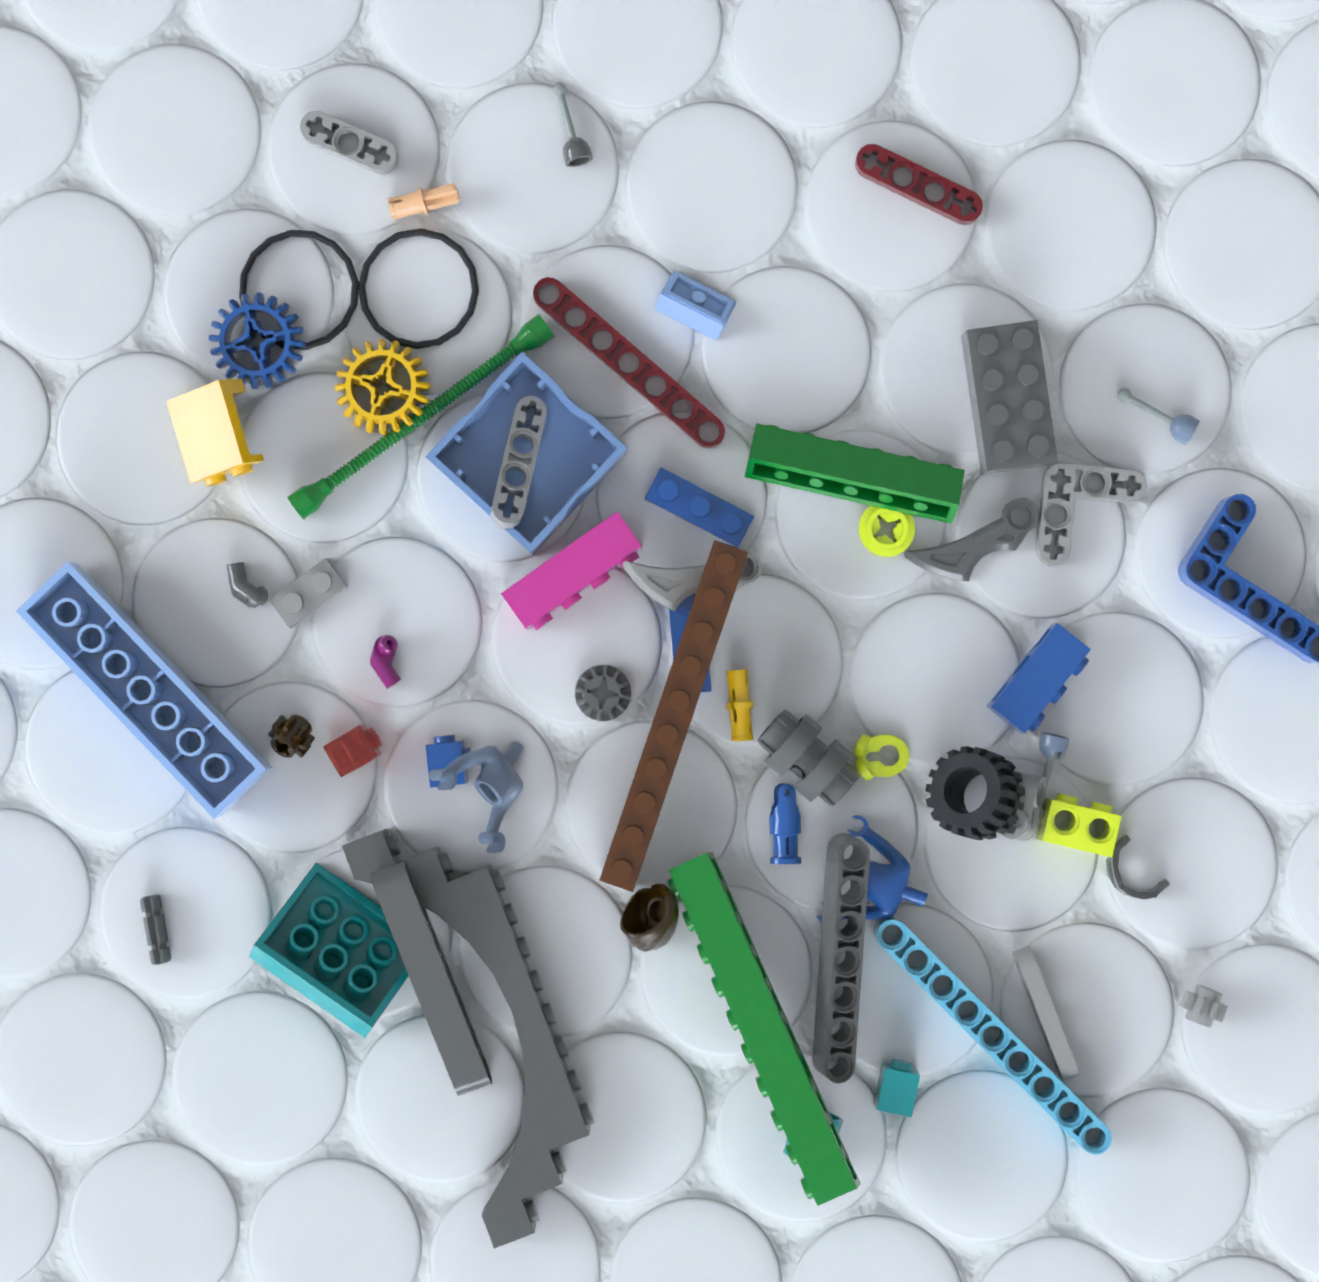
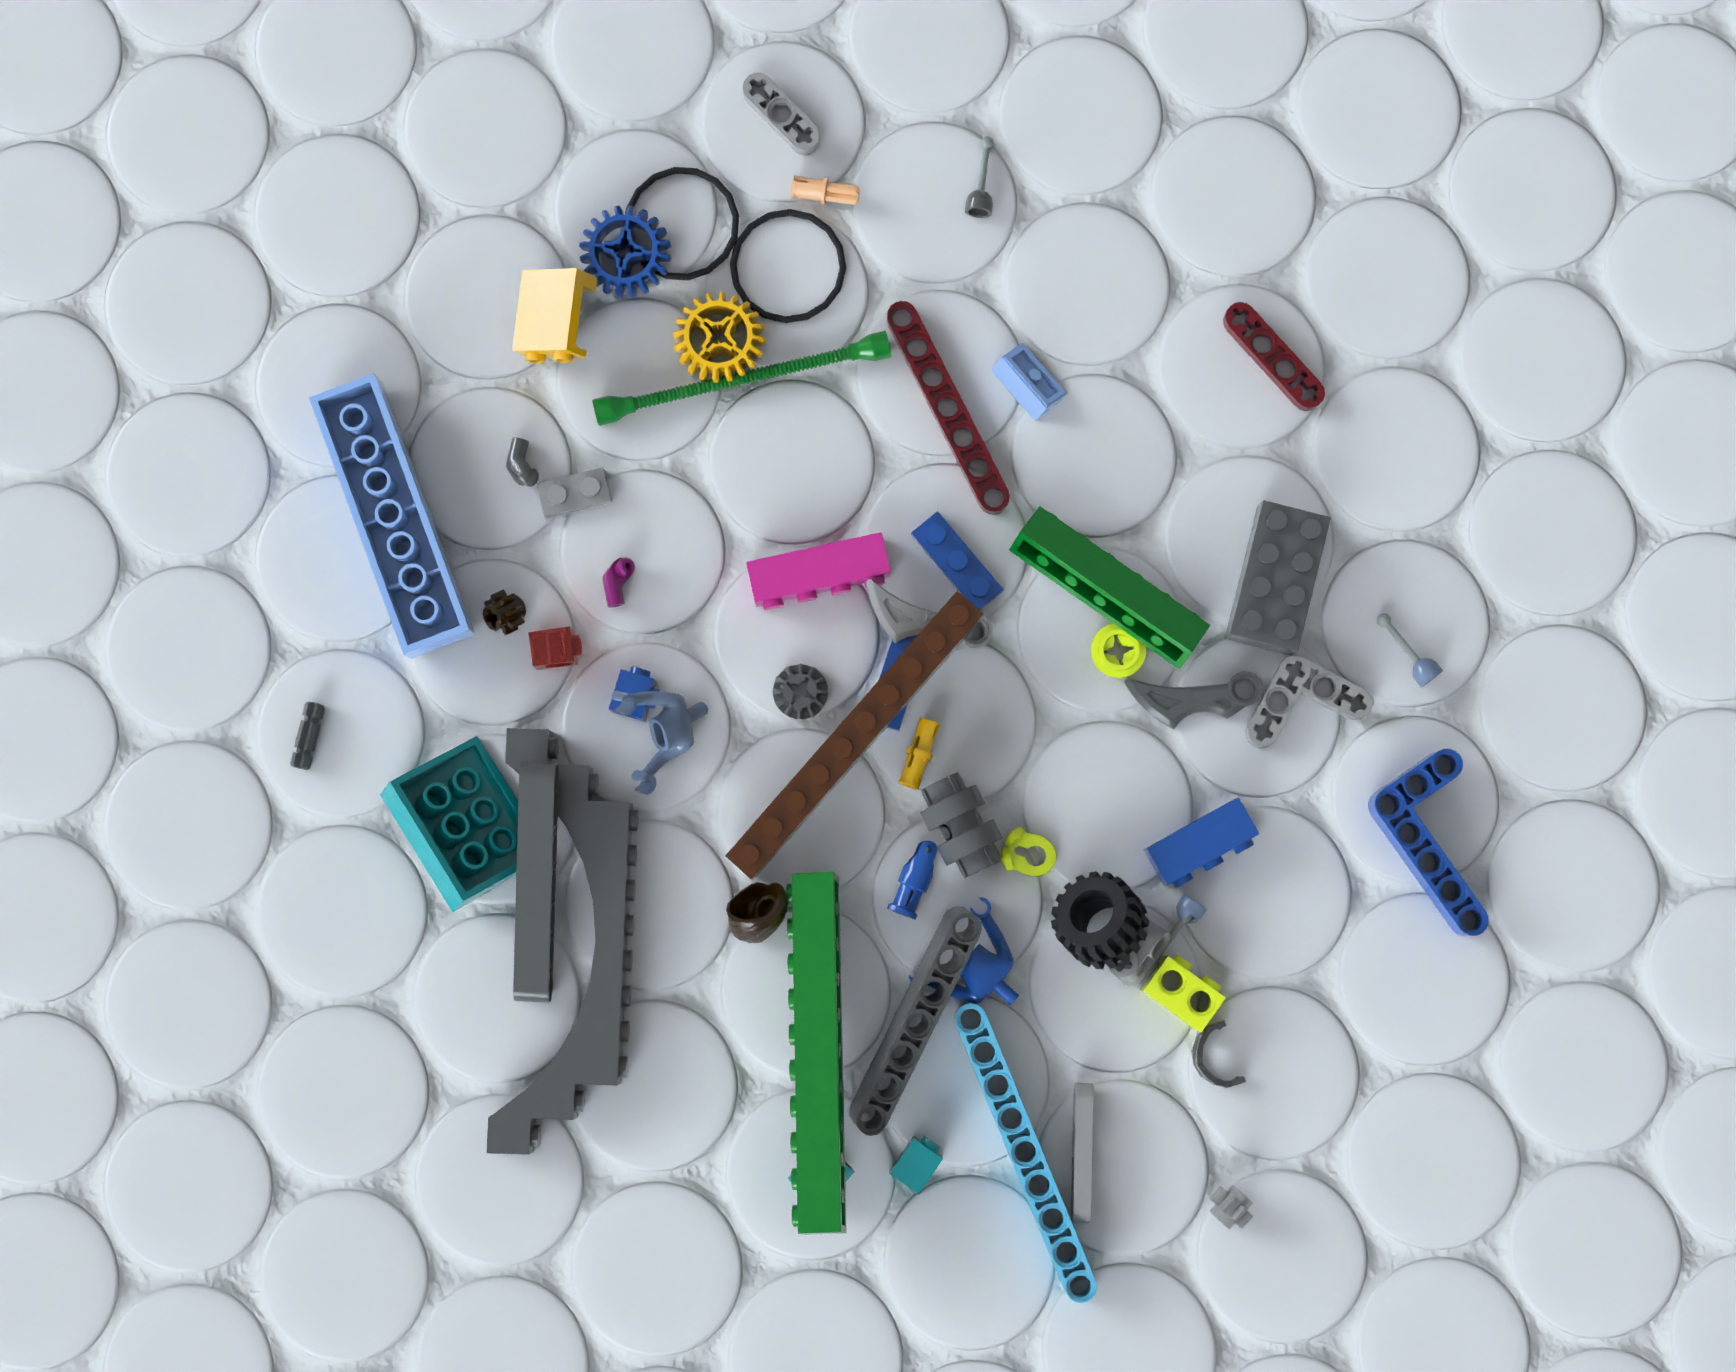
camera: 25 degrees right, 5 degrees down
(516, 461) = (811, 451): light grey beam -> none
(570, 460) = (822, 449): medium blue tile -> none

